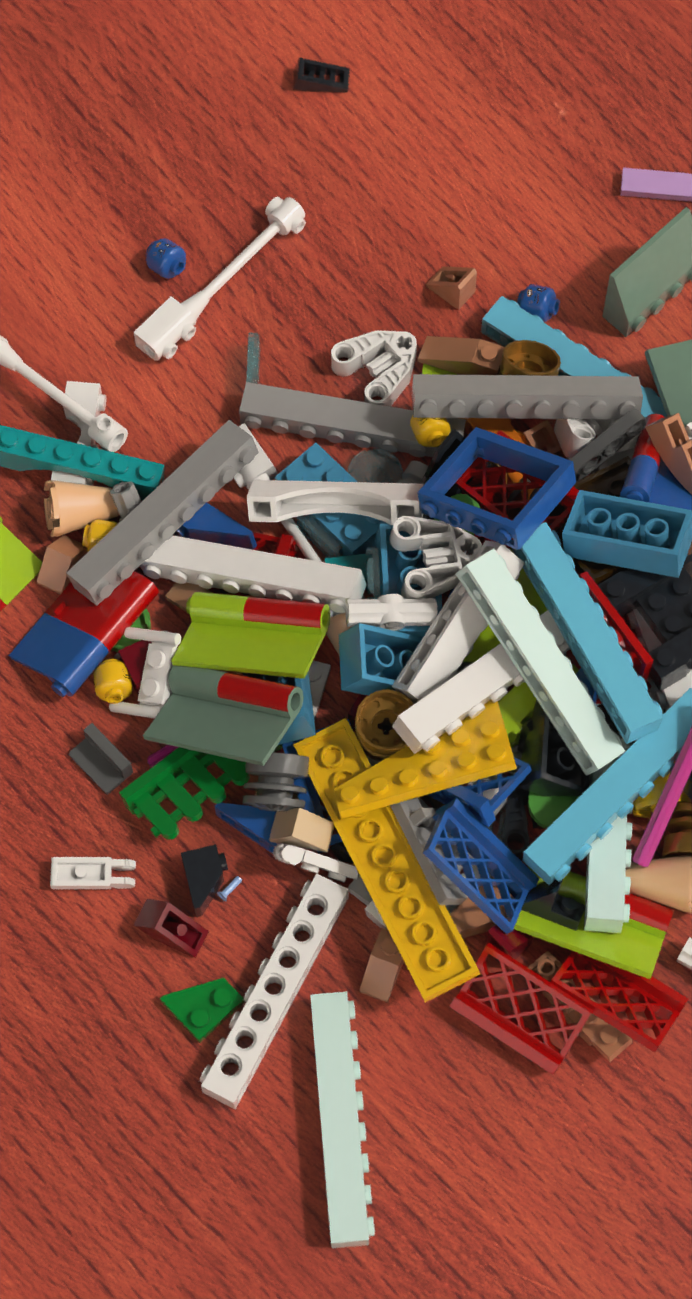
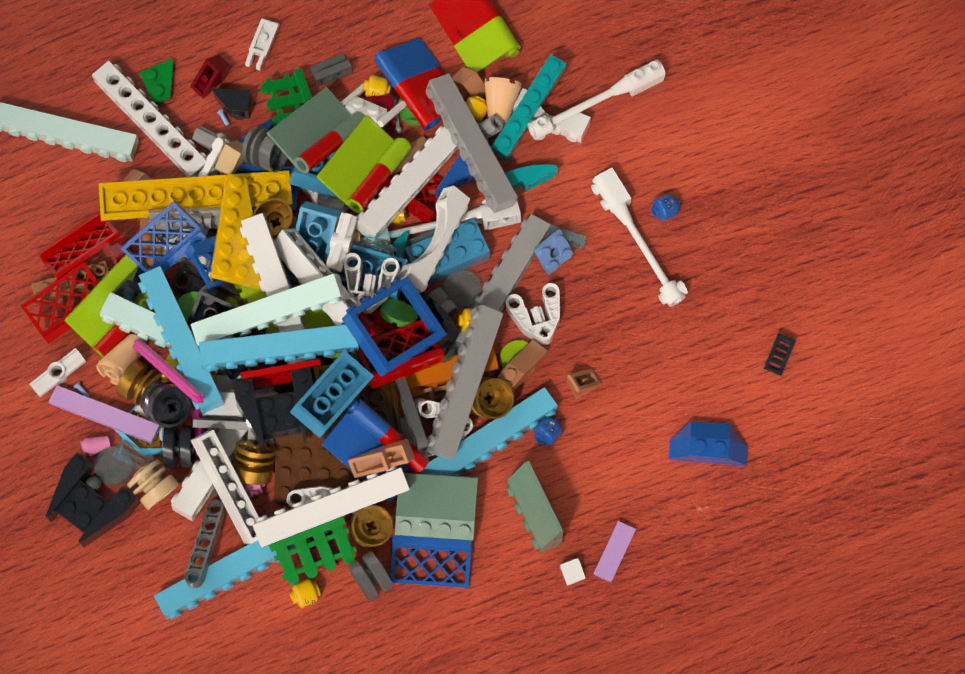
camera: 110 degrees right, 5 degrees up
(179, 433) = (531, 176): none -> teal slope
(277, 880) = (206, 137): none -> light grey piece
(282, 372) = (561, 252): none -> medium blue piece
(477, 122) = (708, 444): none -> blue wedge

